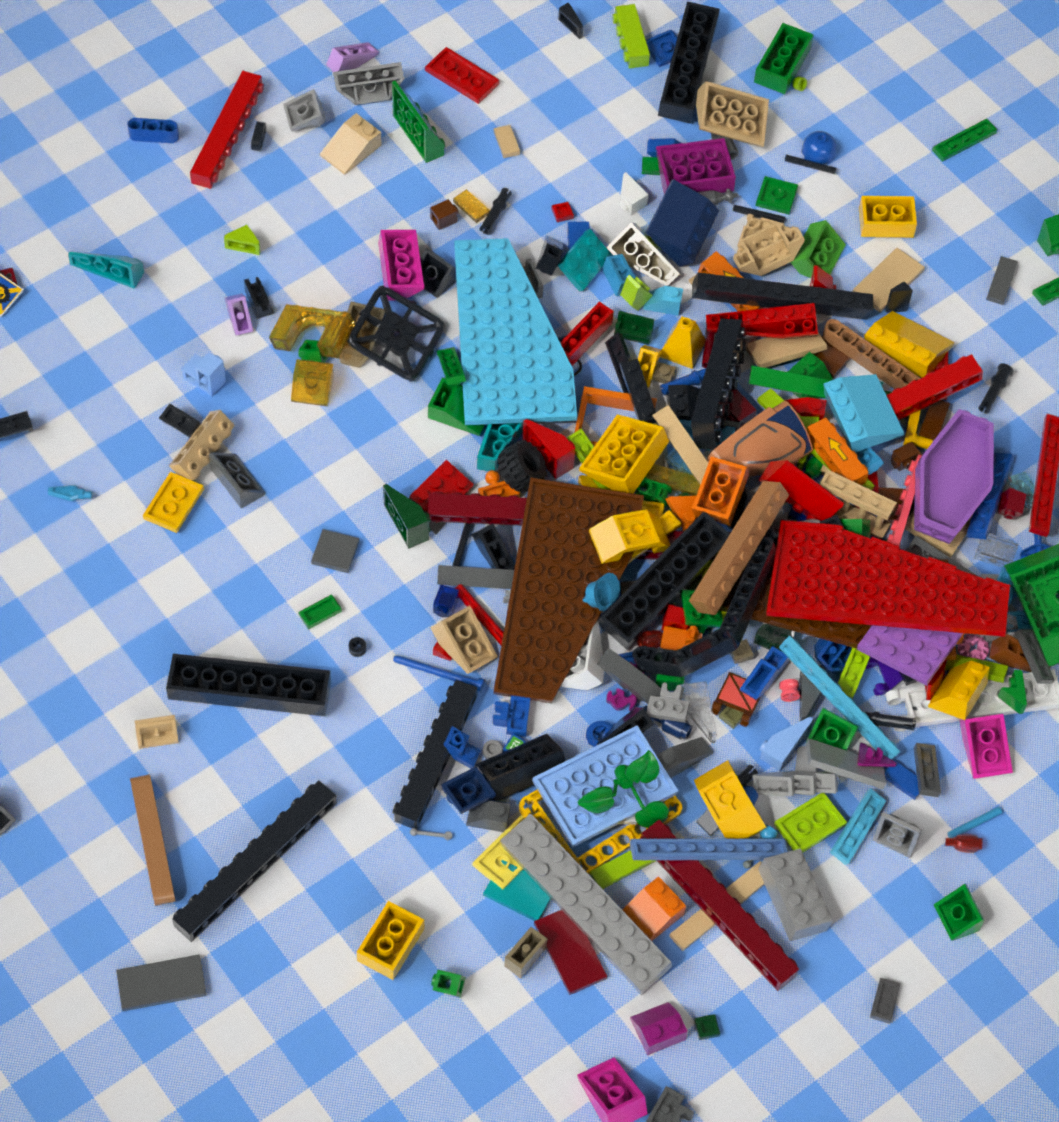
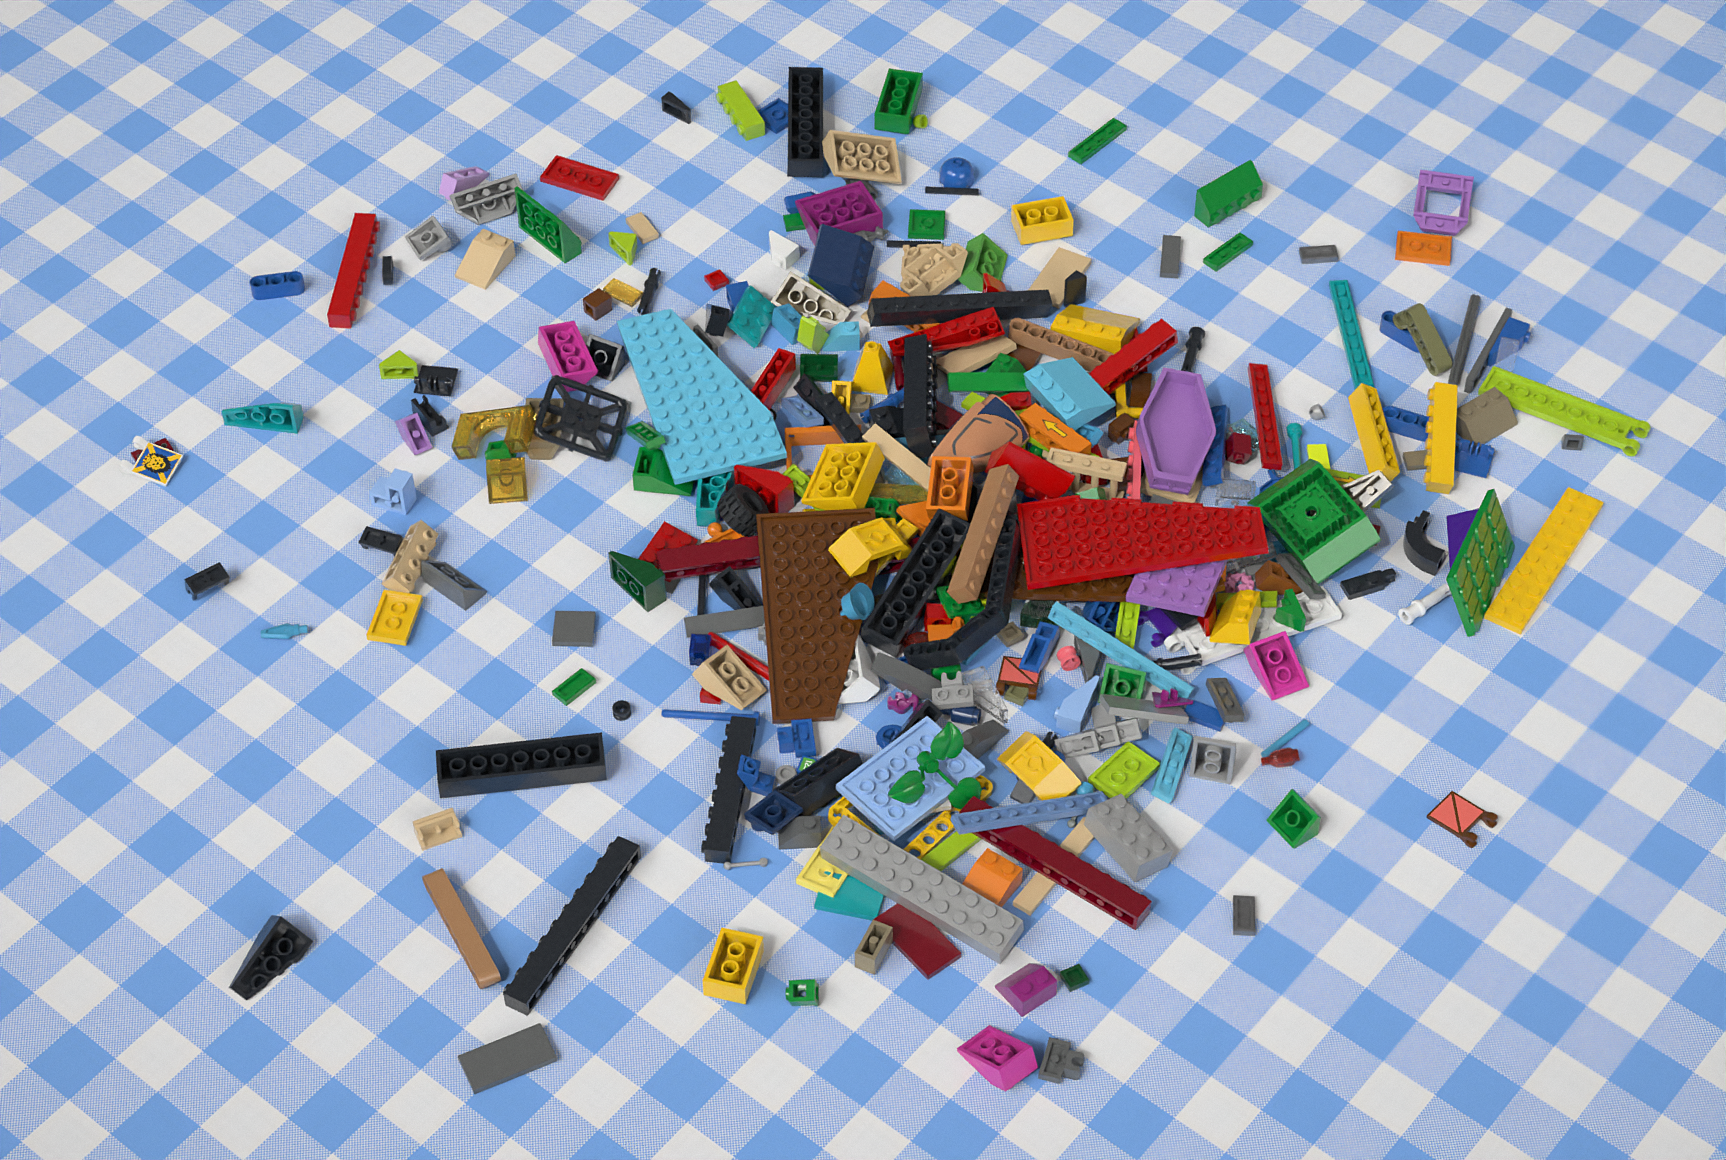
camera: 10 degrees left, 10 degrees down
(273, 261) = (435, 380): none -> black hinge
(485, 157) = (624, 245): none -> lime slope
(605, 371) = (802, 411): none -> medium blue plate

